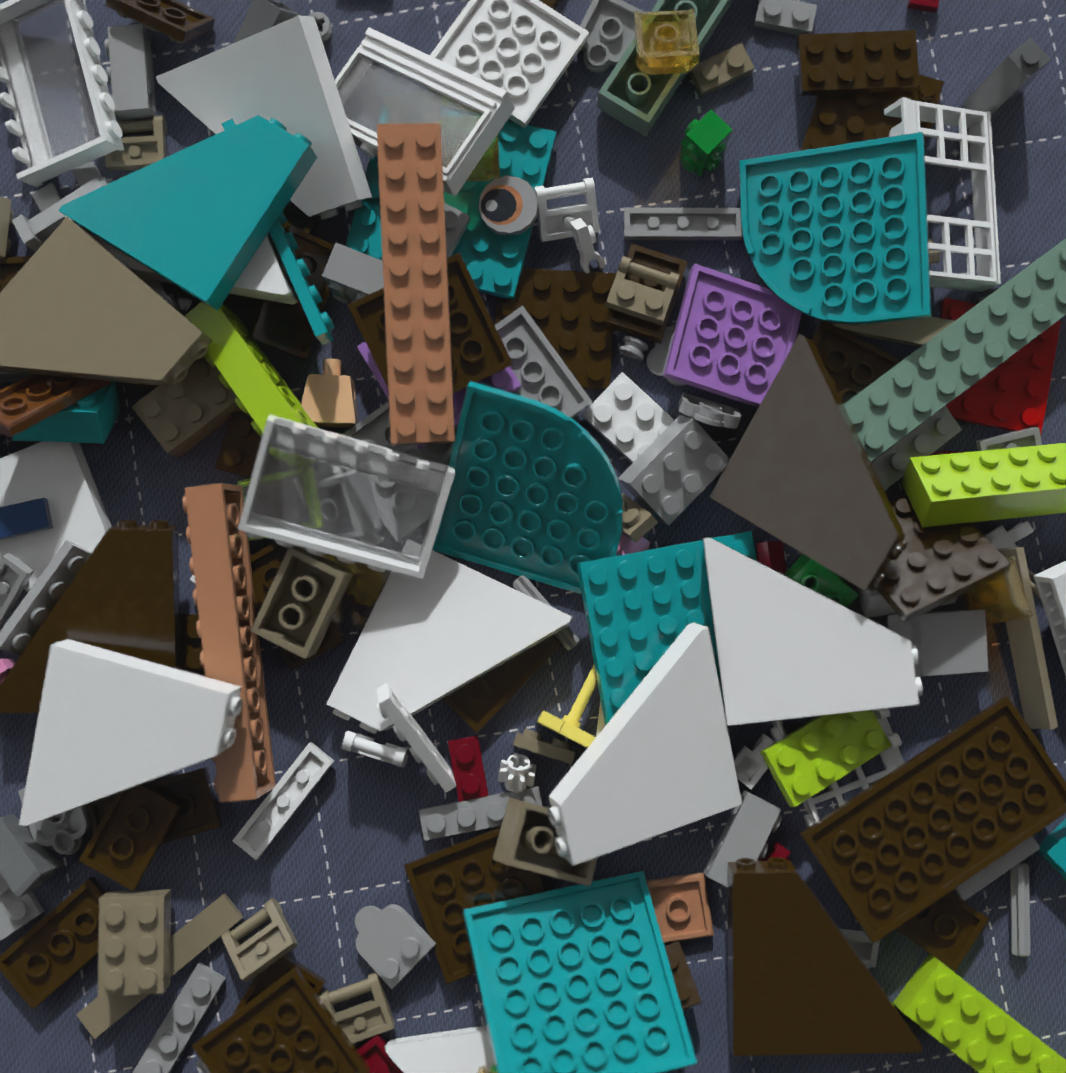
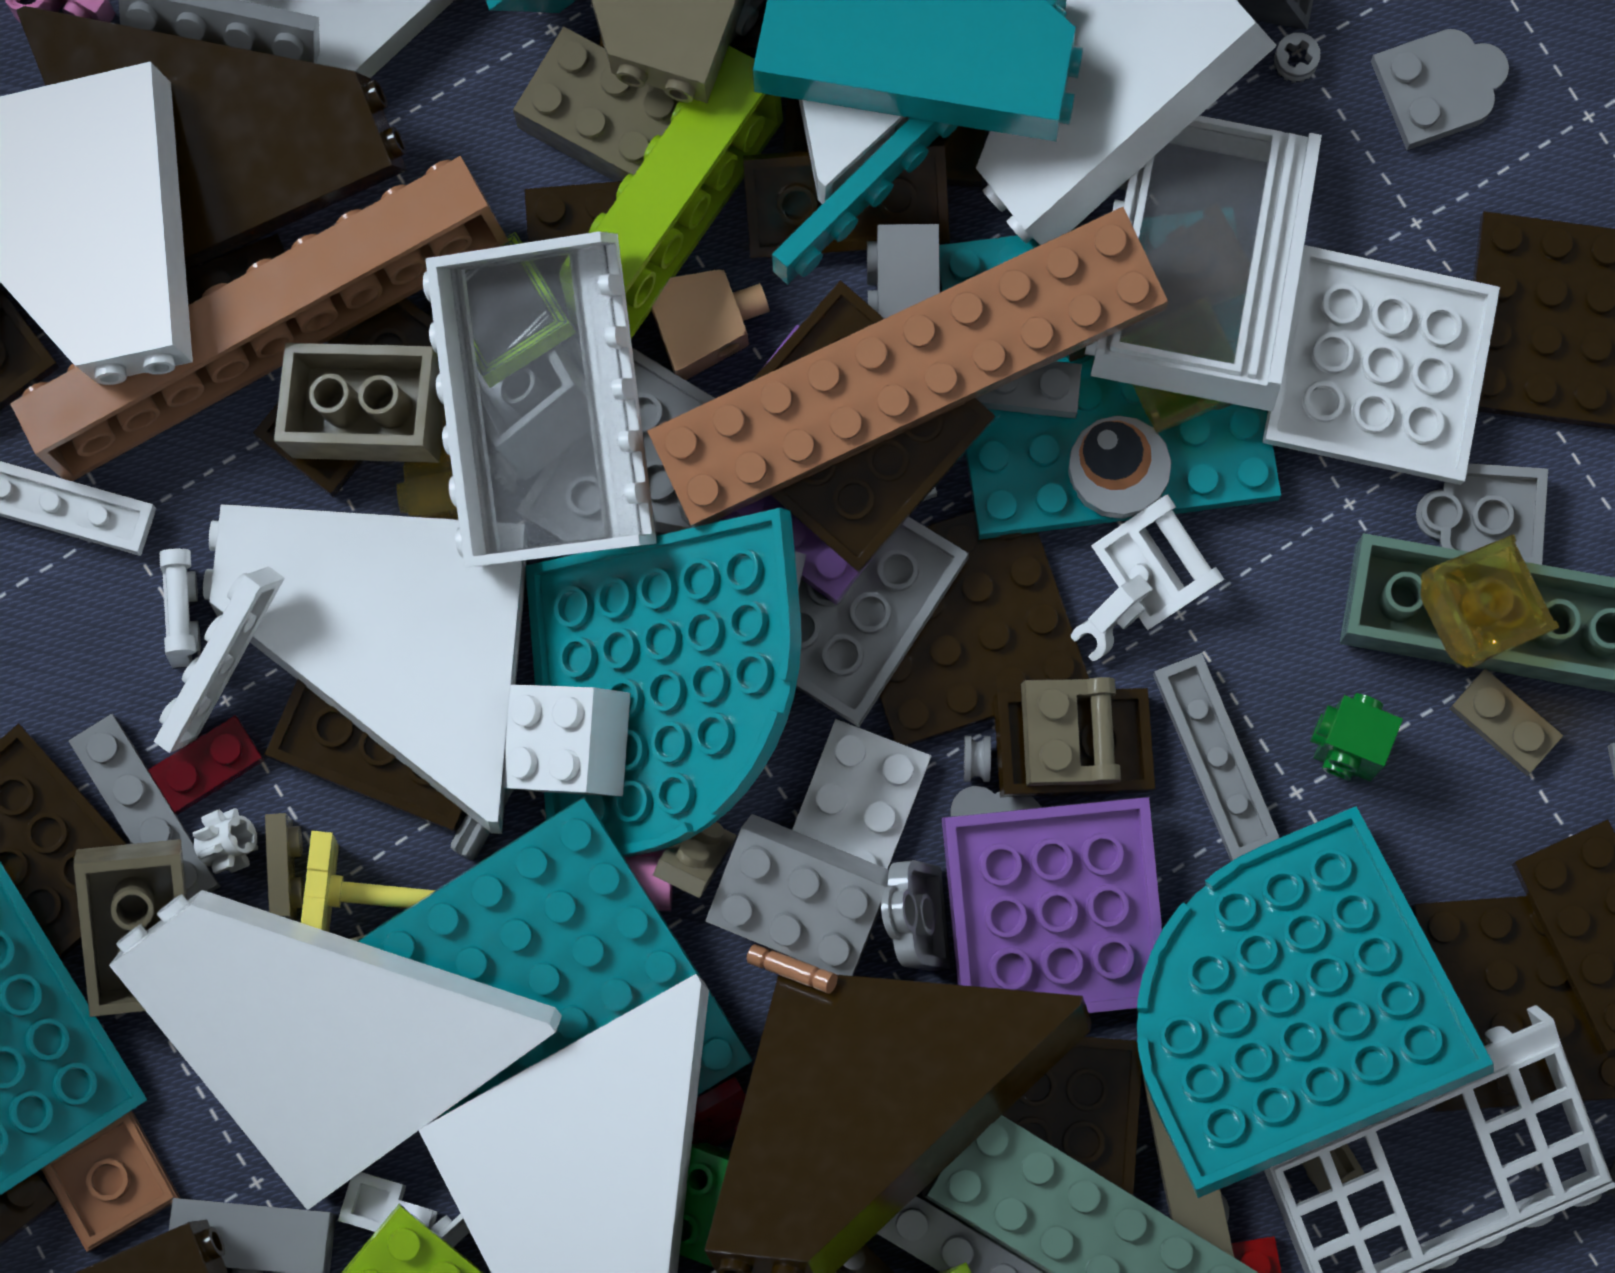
camera: 70 degrees right, 5 degrees down
(541, 561) = (566, 740): none -> white brick
(713, 488) = (792, 968): none -> nougat wheel

